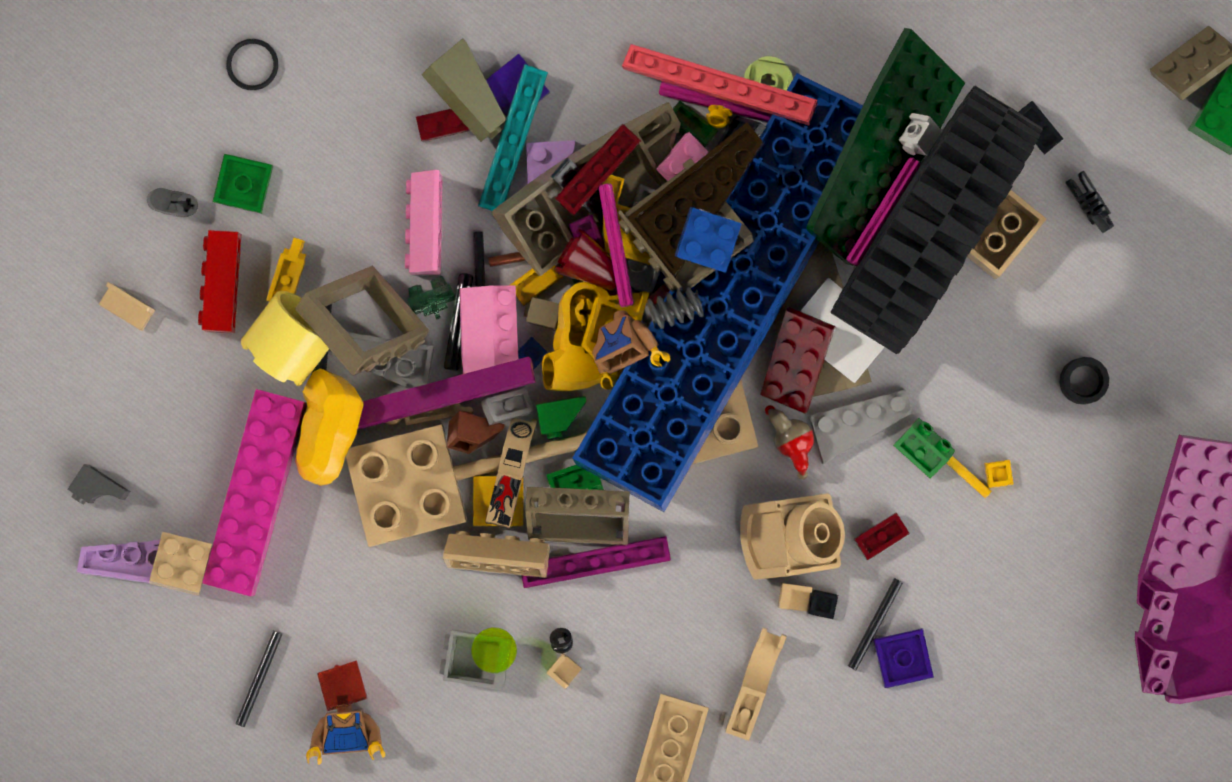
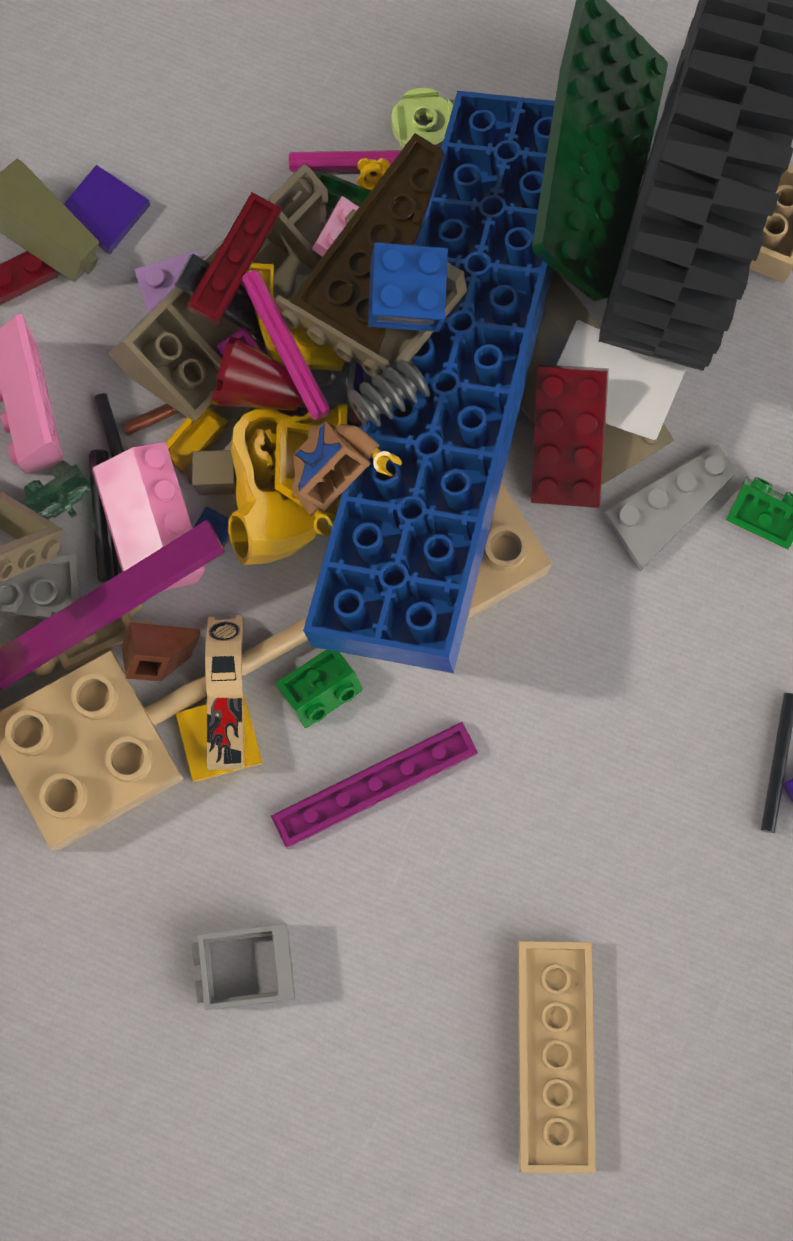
camera: 20 degrees left, 10 degrees down
(342, 685) = (61, 1061): clear red piece -> none
(345, 733) = (81, 1130): torso -> none
(494, 650) = (266, 944): clear neon green piece -> none
(496, 554) = (234, 810): tan slope -> none
(507, 406) = (196, 605): light grey plate -> none
(513, 137) = (115, 263): teal tile -> none
(558, 415) = (271, 598): green slope -> none
(559, 633) = (353, 897): black bush -> none
(564, 670) = (374, 947): tan panel -> none
(577, 502) = (326, 690): dark tan window -> none
(720, 84) = (364, 129): coral tile -> none
(755, 684) = (644, 890): tan piece -> none
(791, 536) = (631, 672): tan piece -> none
(792, 439) = (592, 545): piece -> none
(794, 597) = (659, 754): tan panel -> none
(823, 604) = (701, 755): black tile -> none
(881, 536) = (749, 641): dark red plate -> none
(883, 211) = (622, 219): dark pink axle -> none
(920, 135) = (639, 112): white brick -> none

